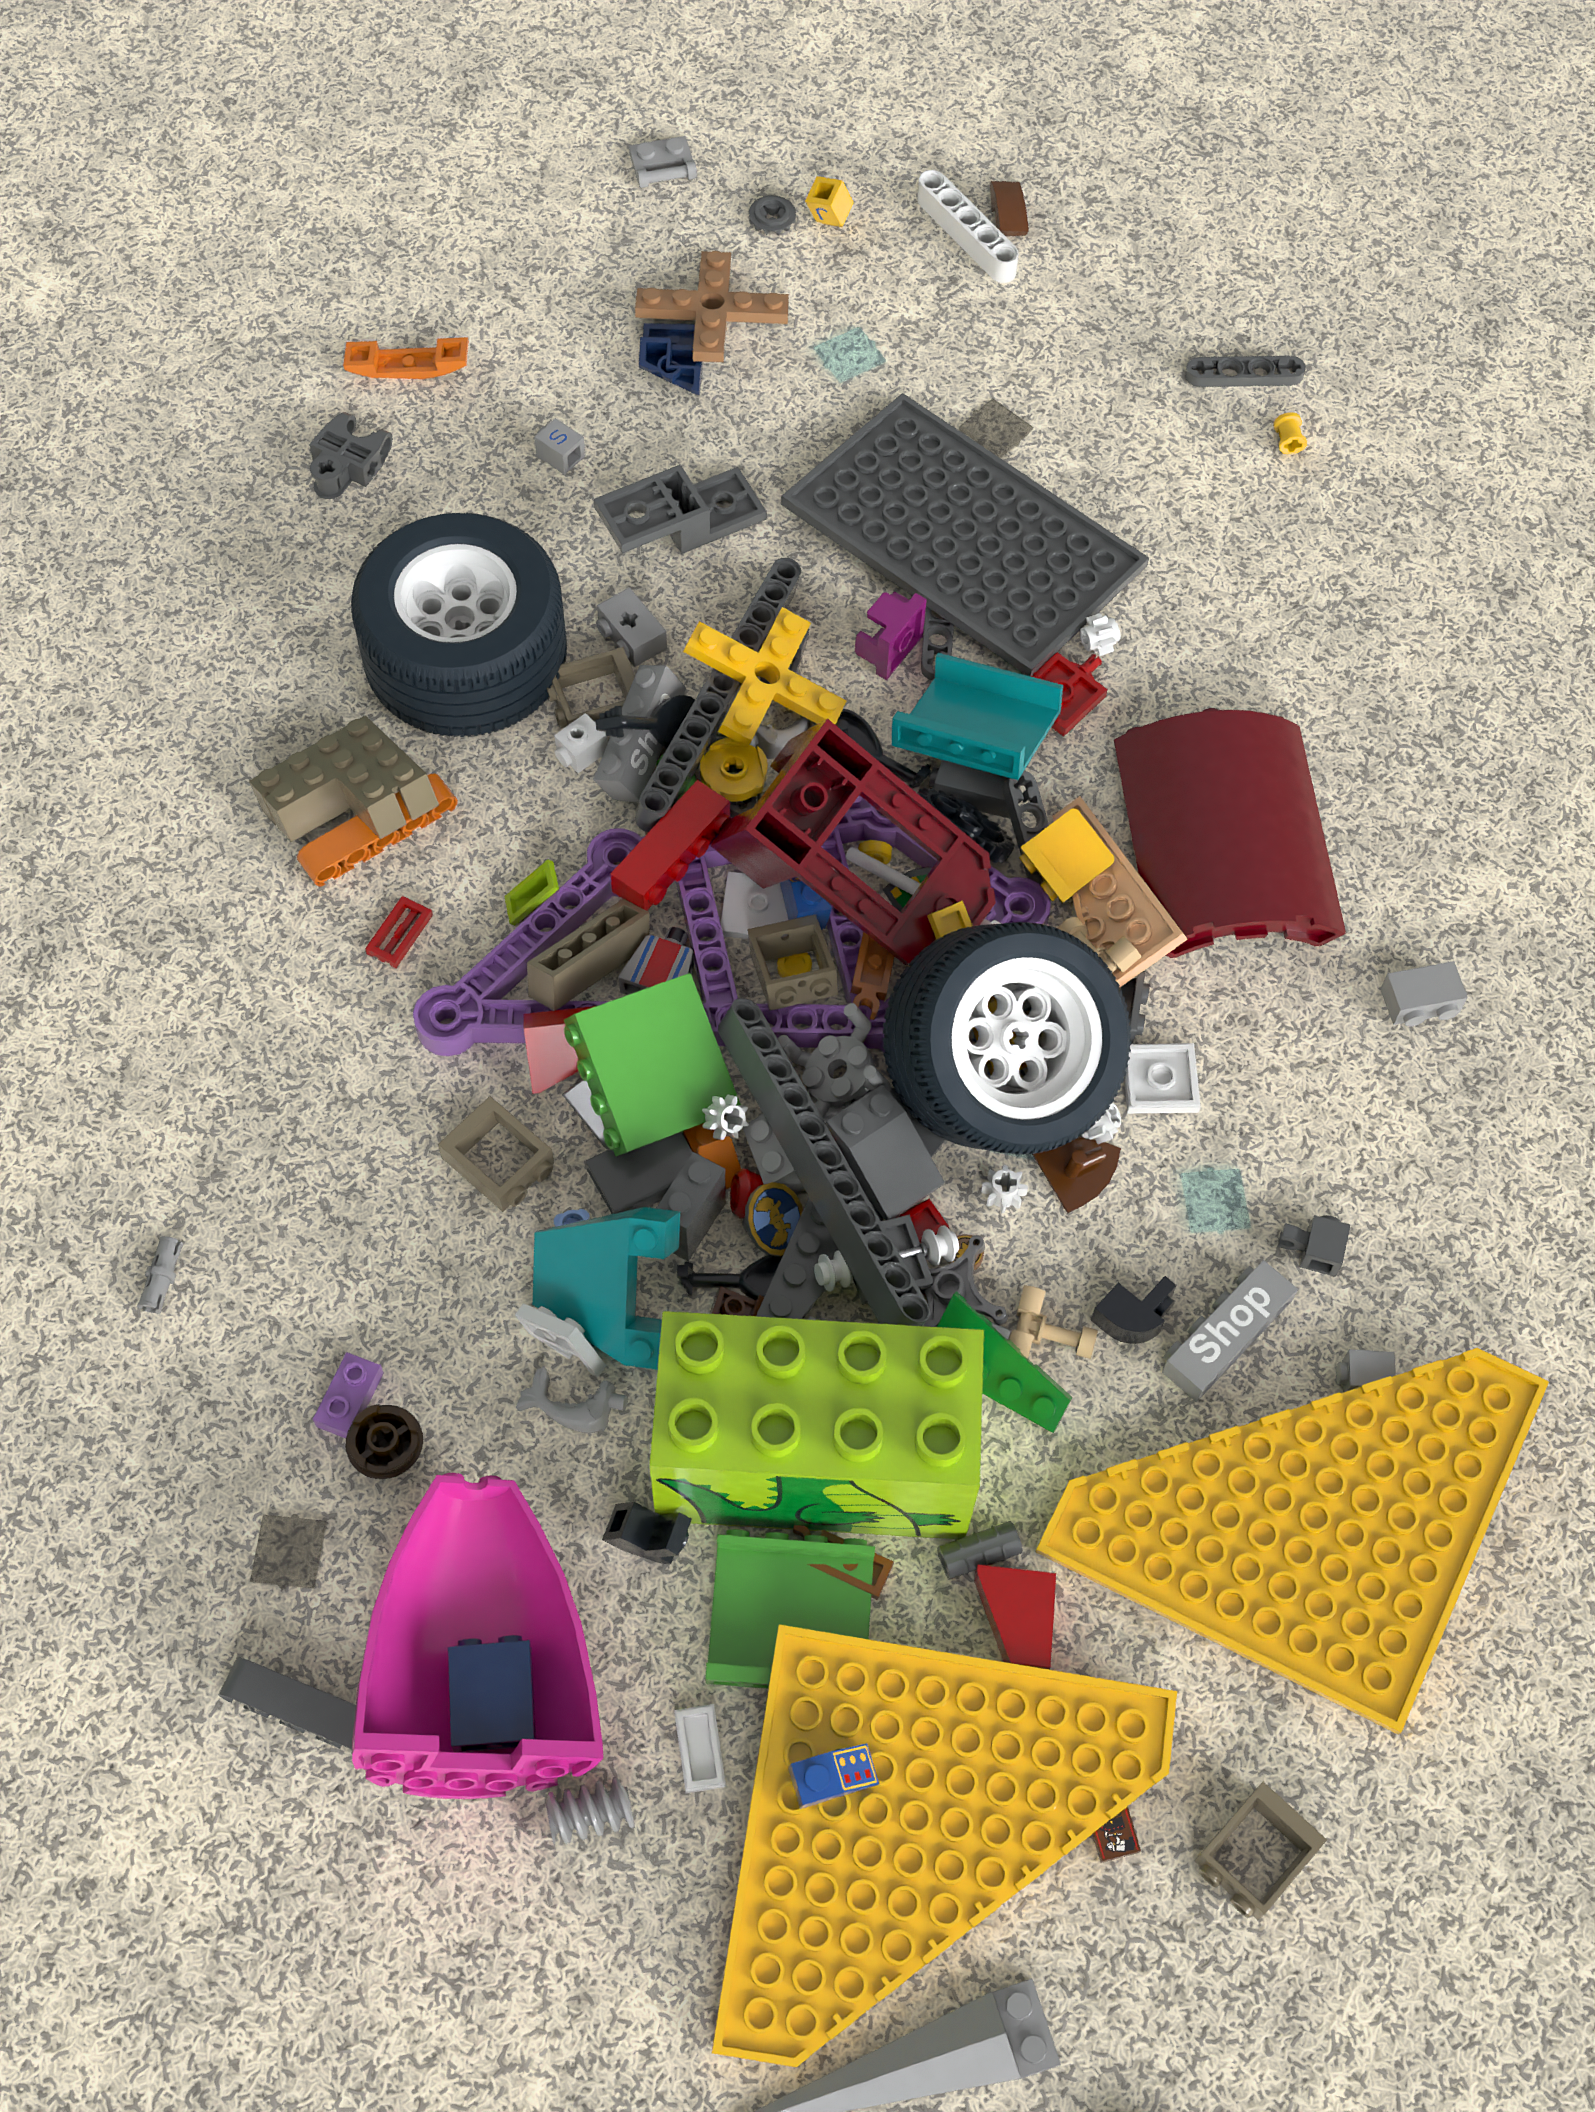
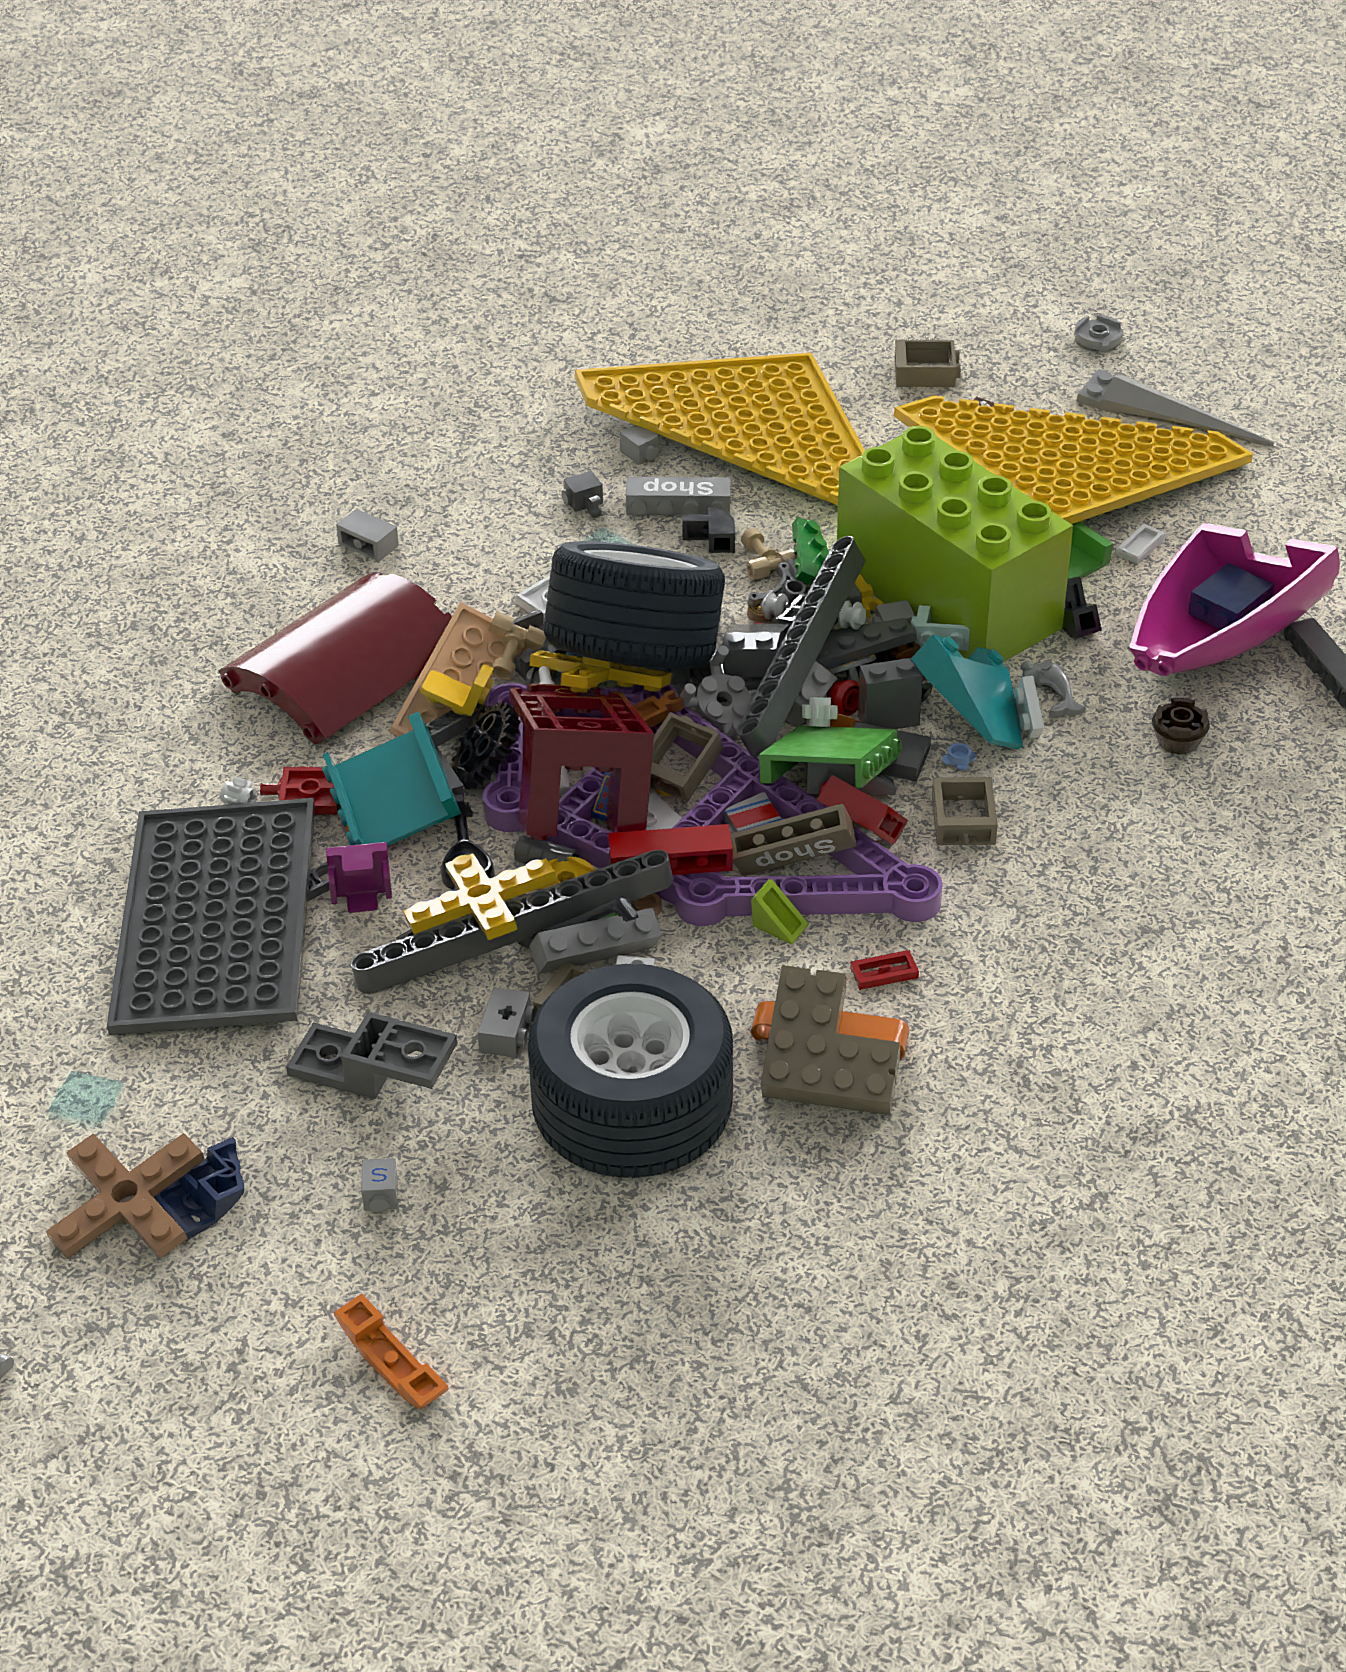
camera: 130 degrees left, 20 degrees down
(160, 1275) = (1247, 891): light grey pin -> none
(288, 1551) = (1279, 739): clear smoke piece -> none
(344, 457) = (553, 1304): dark grey piece -> none
(347, 1394) = (1176, 770): medium lavender piece -> none
(832, 1775) = (1099, 465): blue slope -> none
(996, 428) = (82, 969): clear smoke piece -> none

